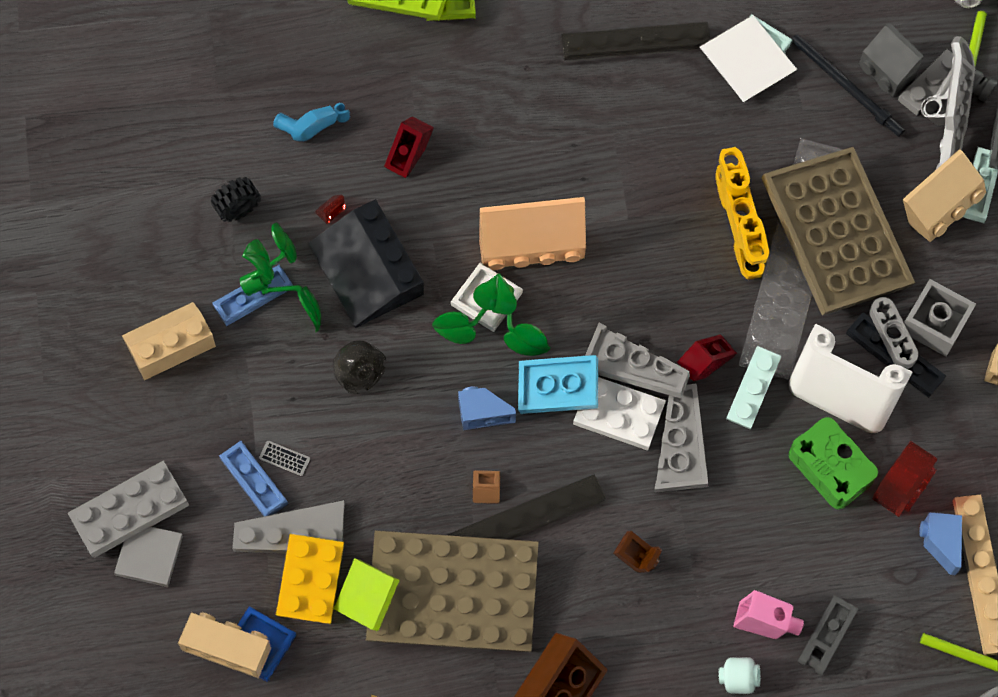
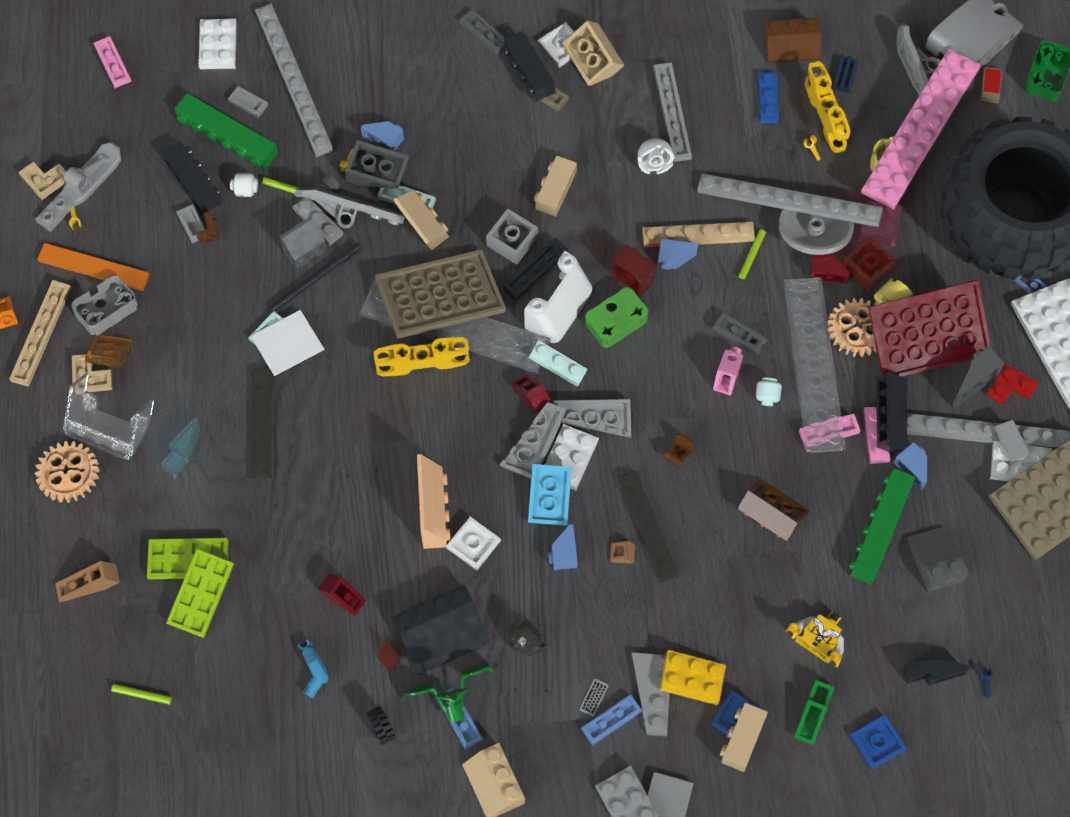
camera: 85 degrees left, 0 degrees up
(366, 594) = (708, 635): lime tile -> none
(457, 591) = (704, 578): dark tan plate -> none
(500, 298) = (498, 517): green plant -> none
(897, 322) = (507, 265): light grey beam -> none

